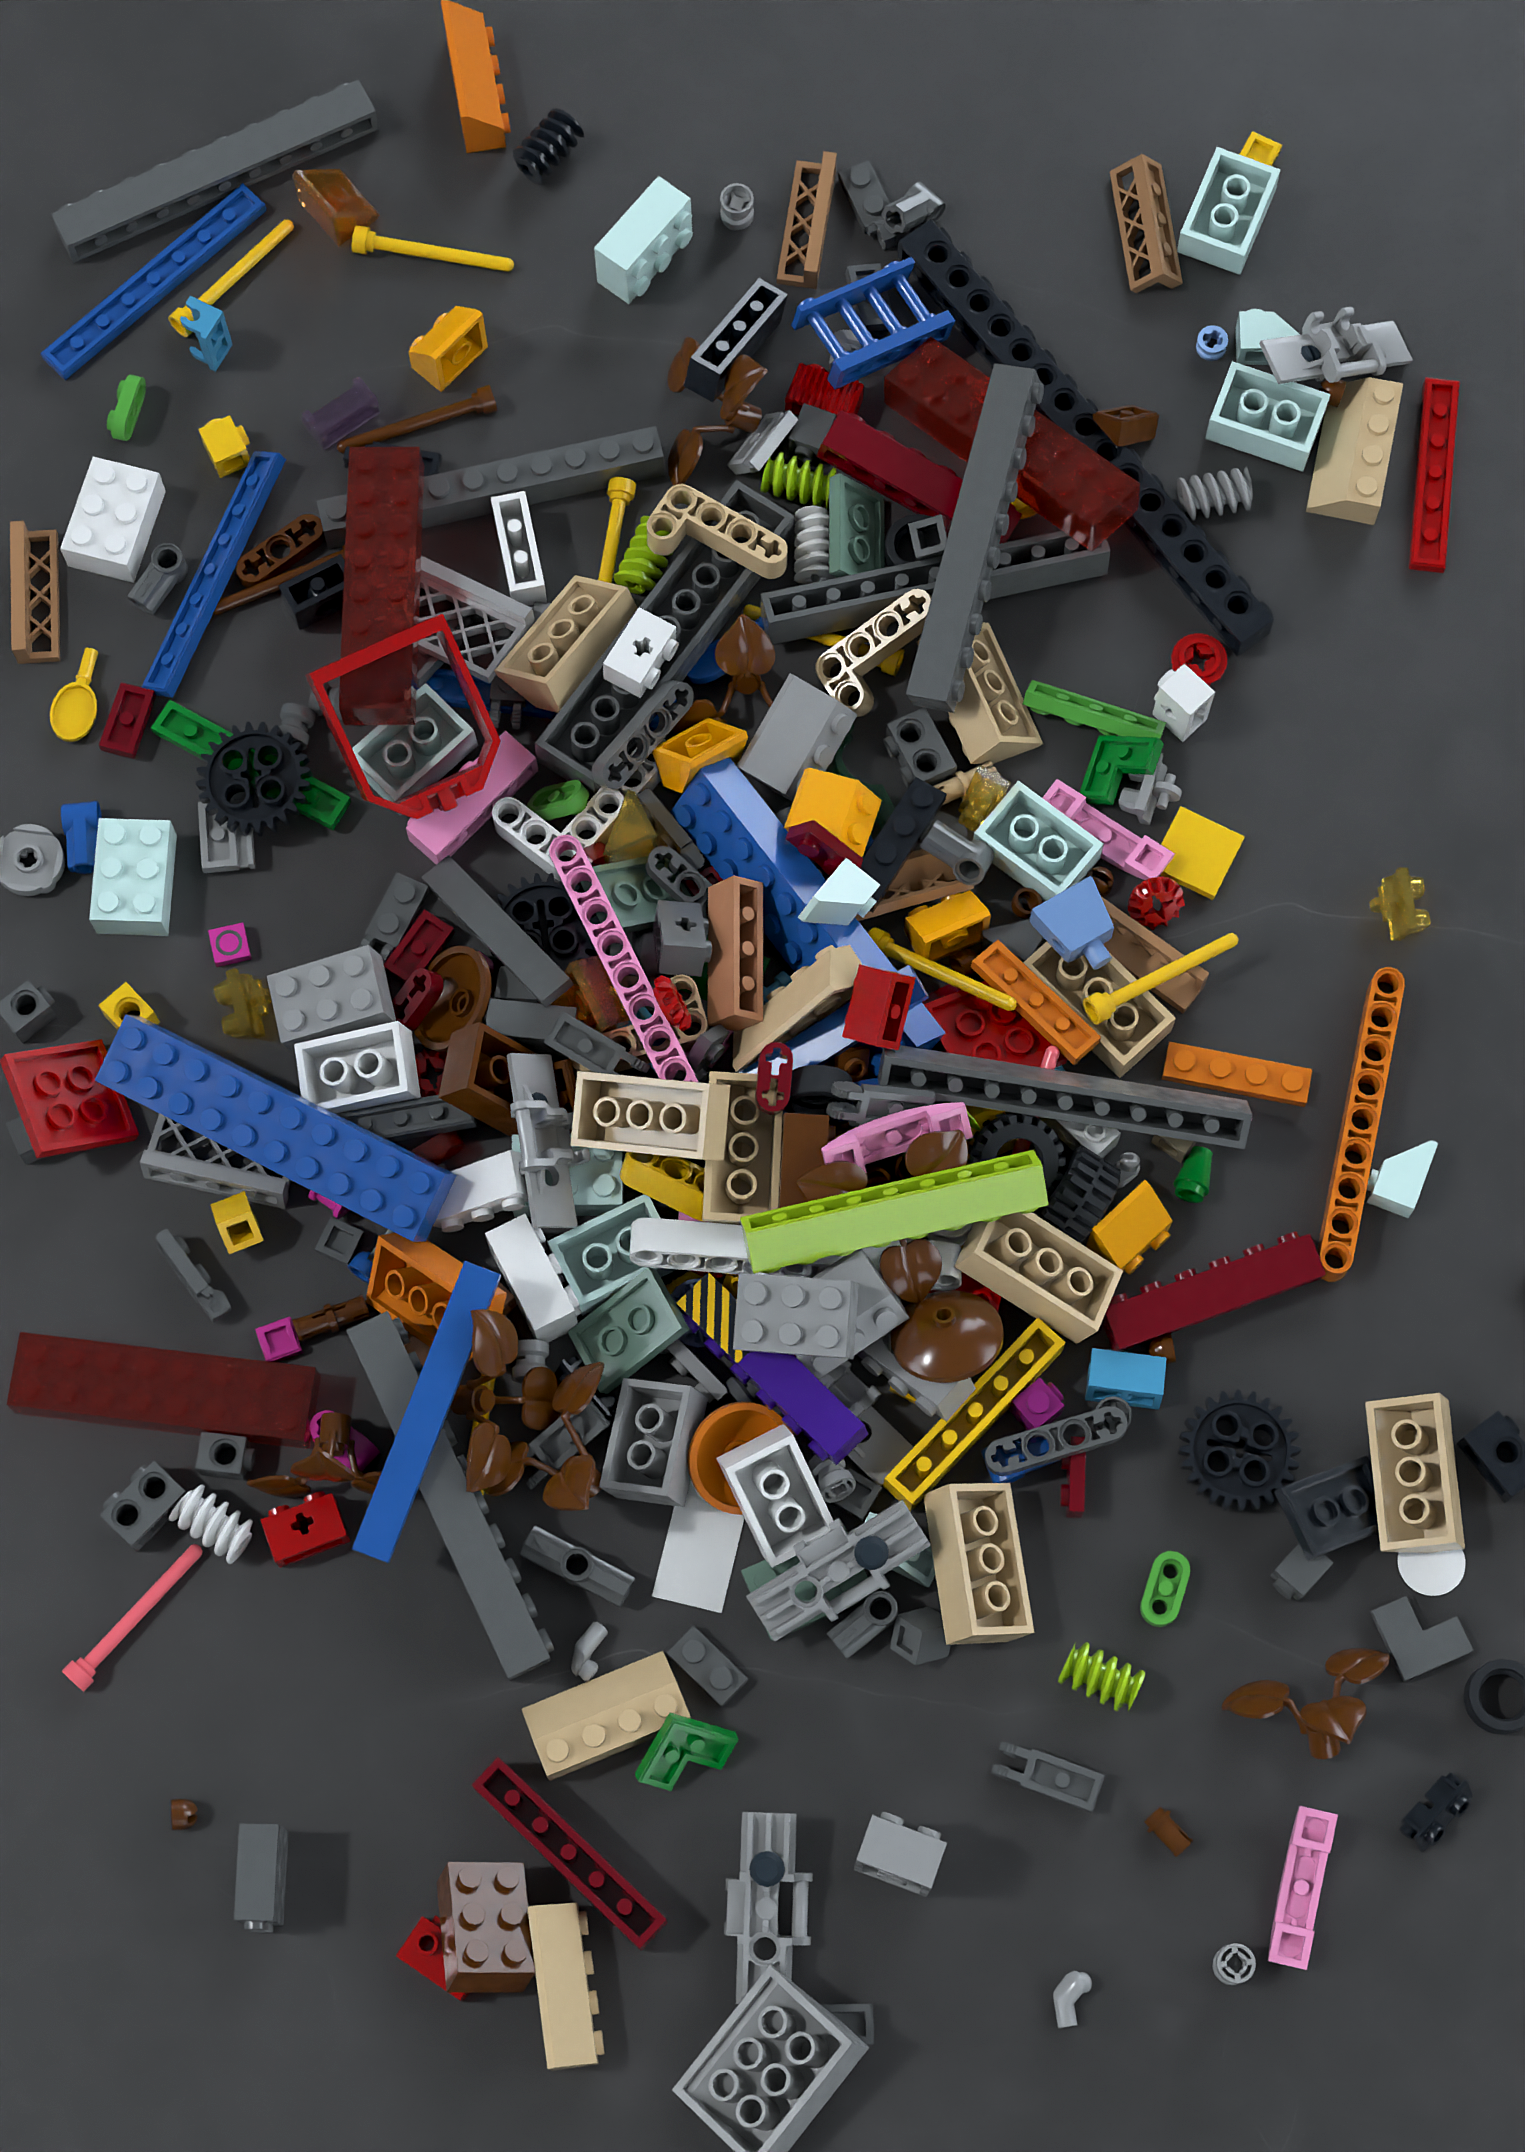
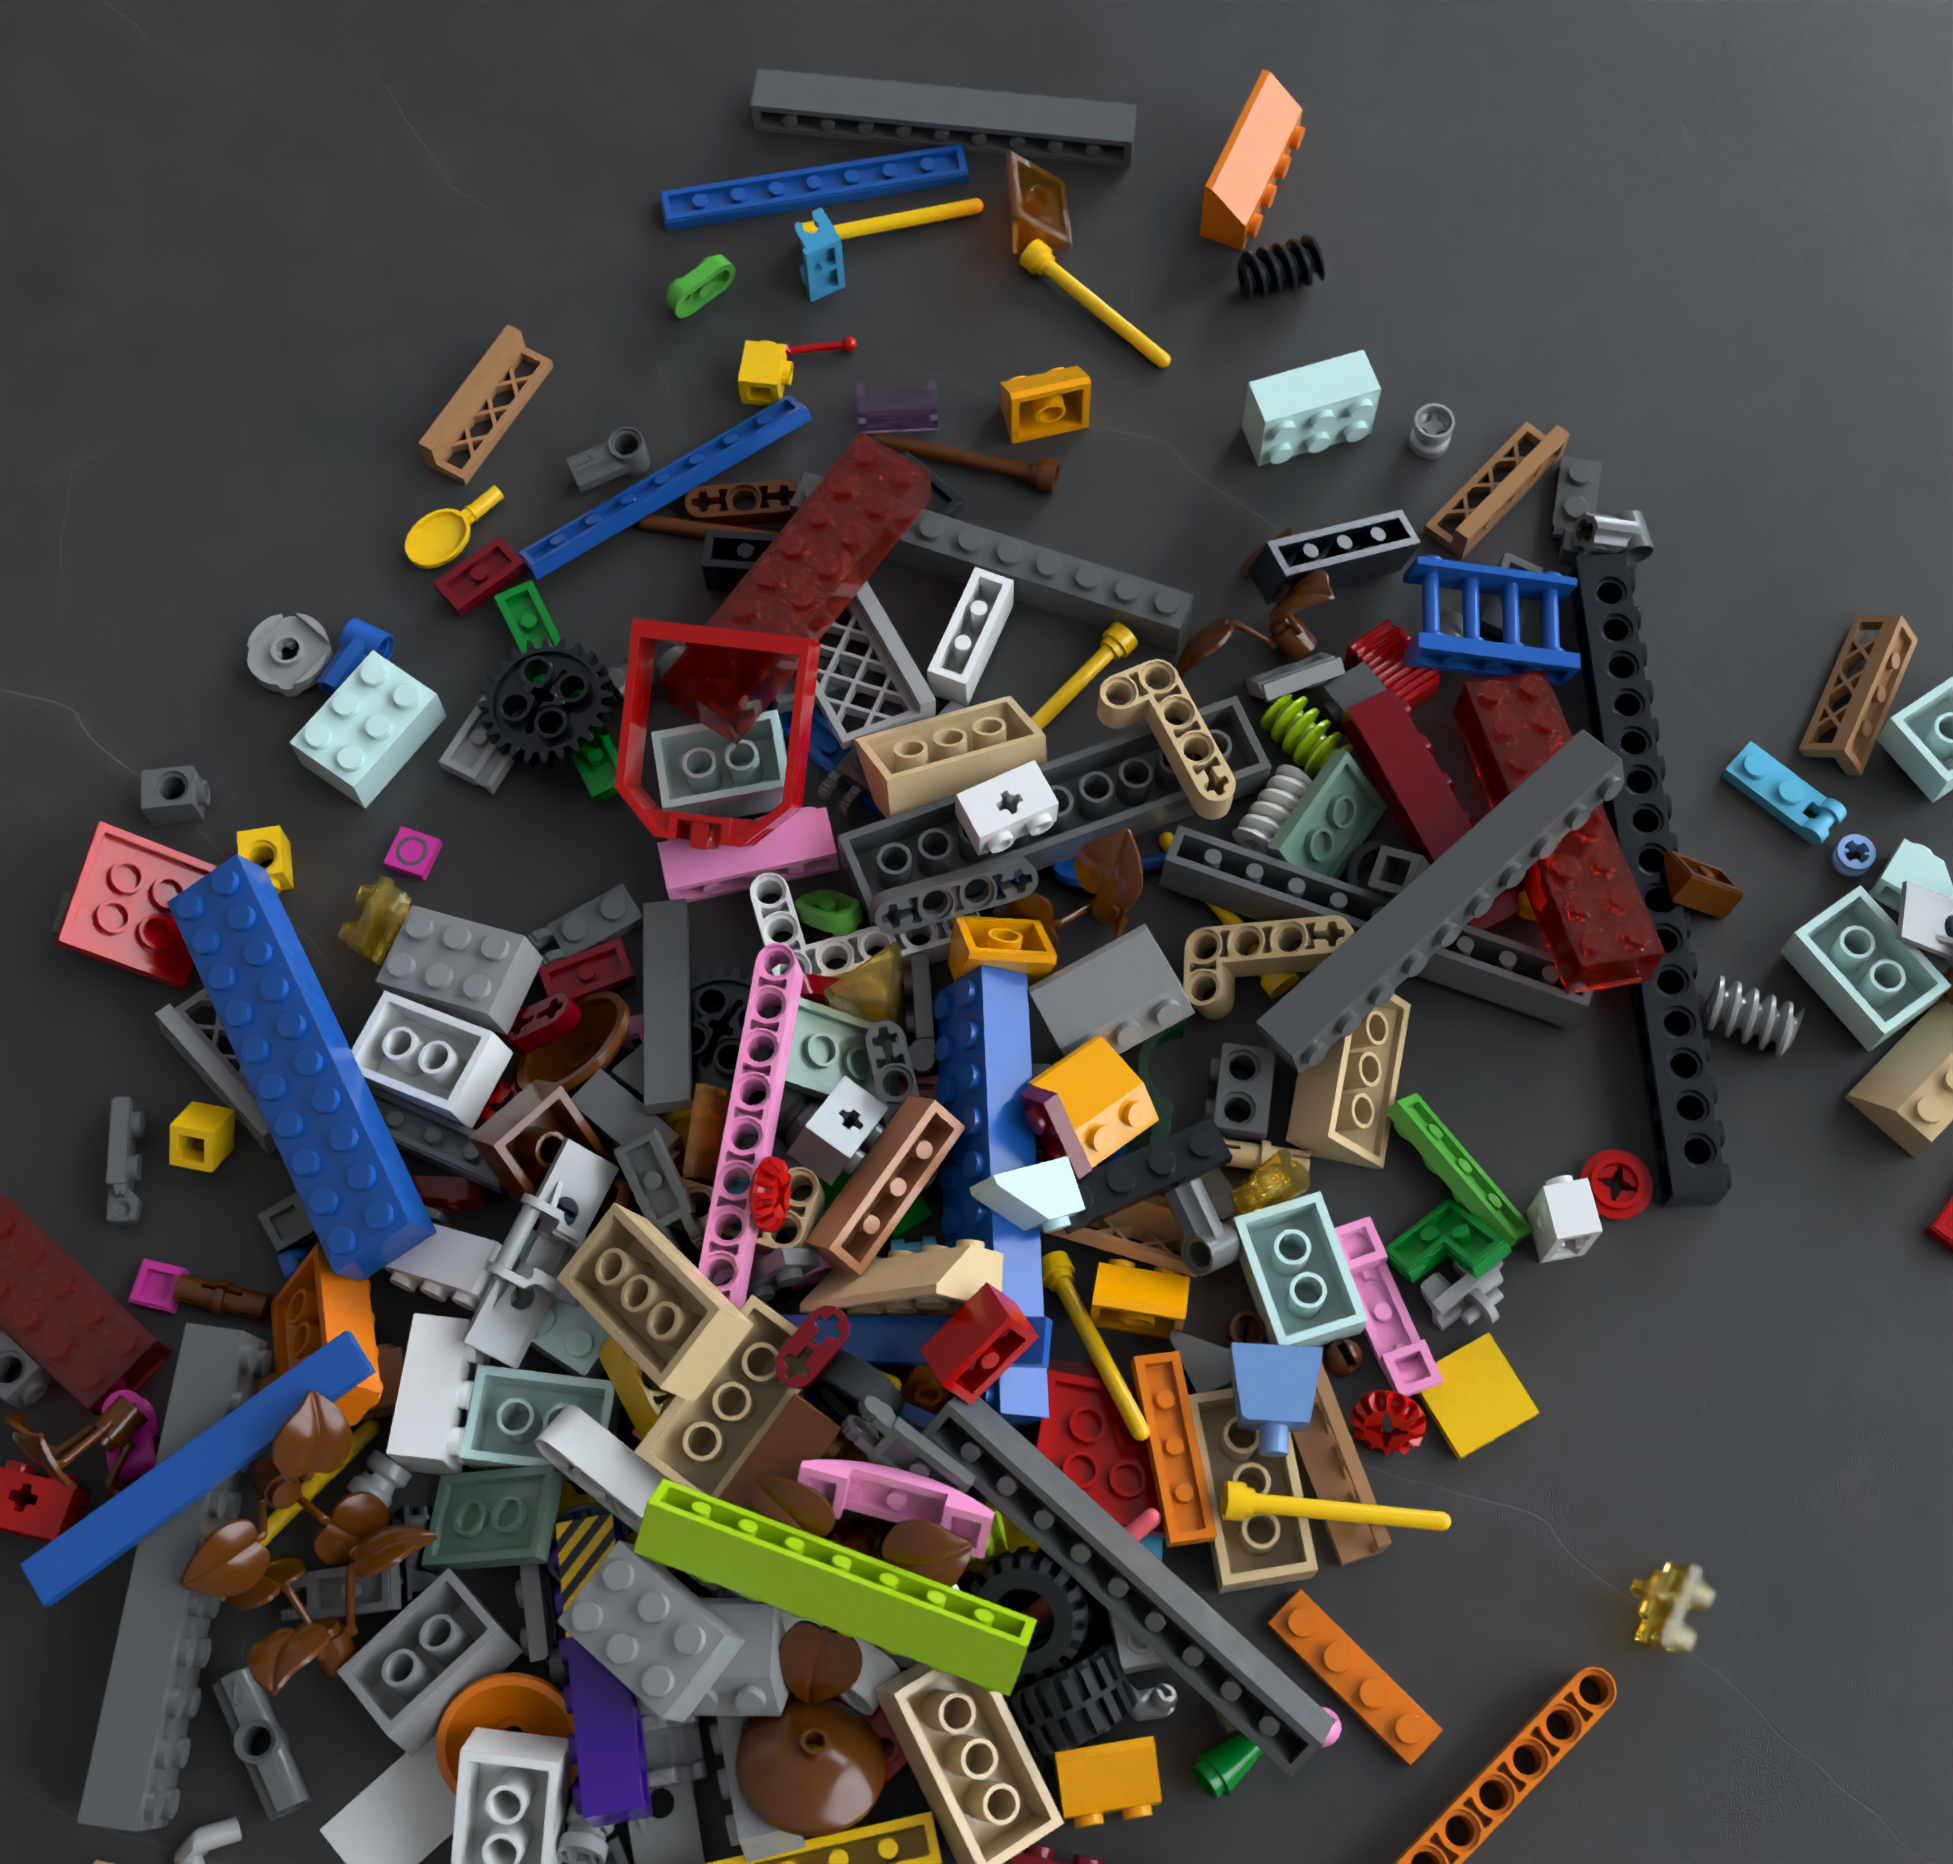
camera: 35 degrees right, 5 degrees down
(113, 519) = (607, 379): white brick -> none
(268, 387) = (848, 344): none -> red hinge
(640, 562) = (1082, 725): lime piece -> none
(962, 961) = (1133, 1346): reddish brown hinge -> none
(1140, 327) = (1783, 794): none -> medium azure plate

